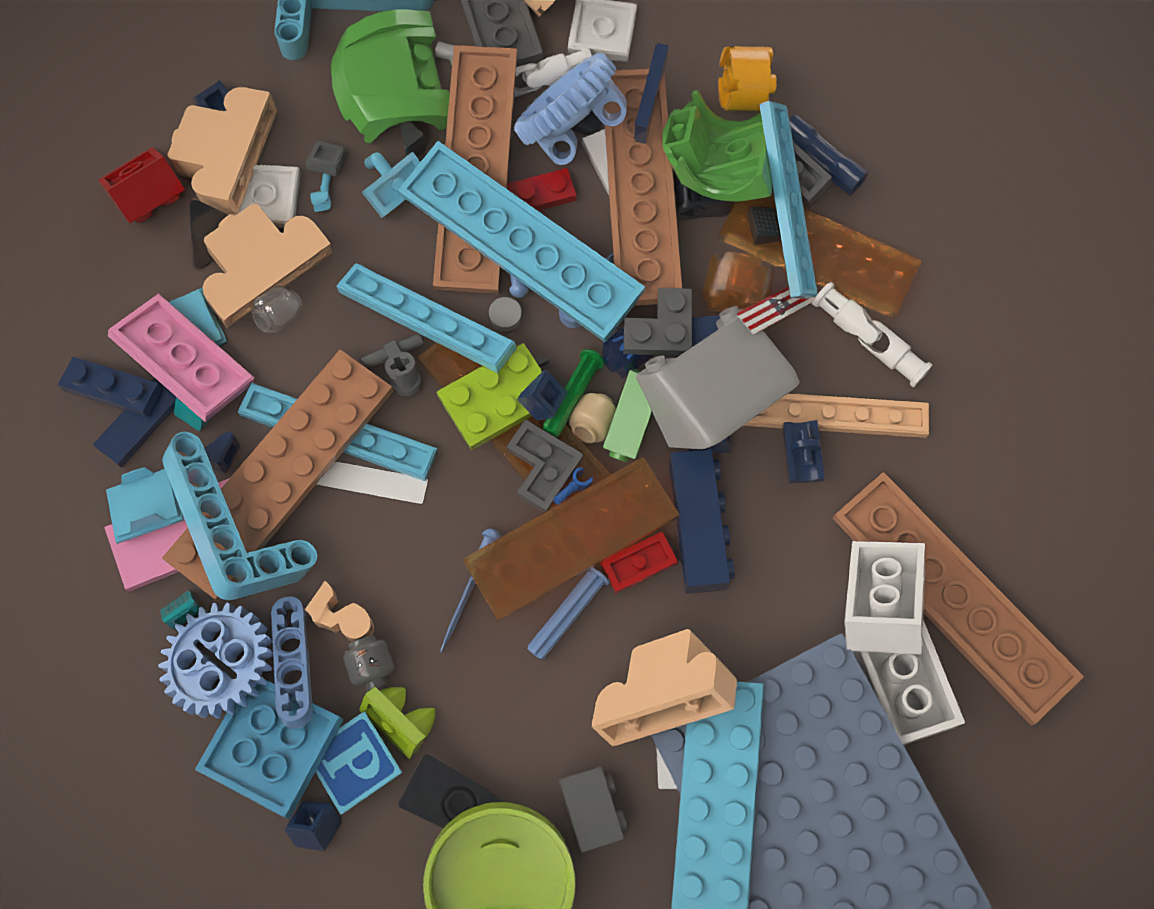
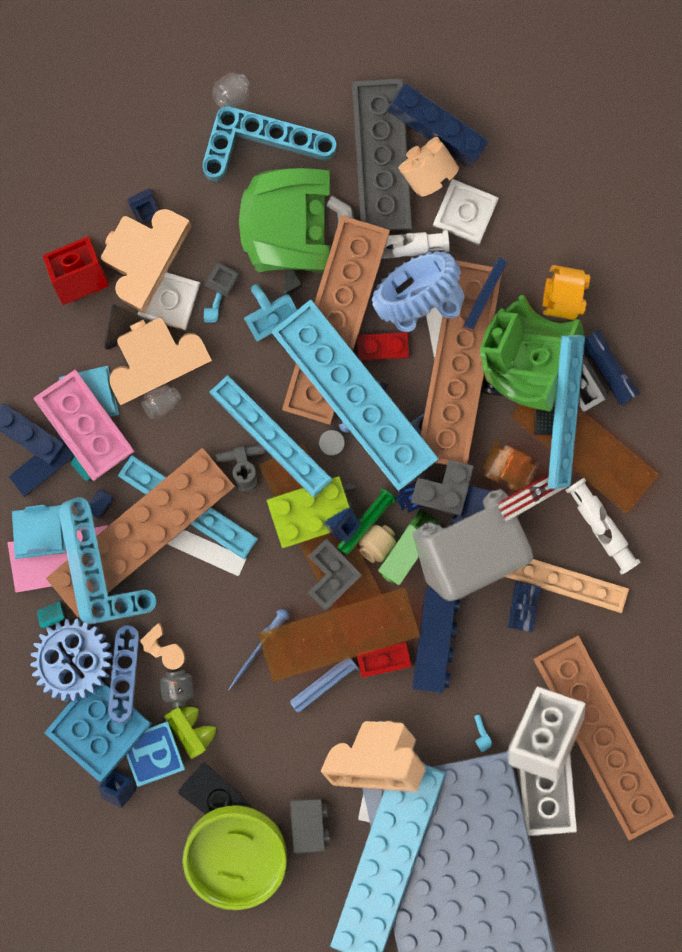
camera: 15 degrees right, 15 degrees up
(573, 486) = (349, 596): blue hand -> none
(802, 638) = (483, 742): none -> medium azure hand

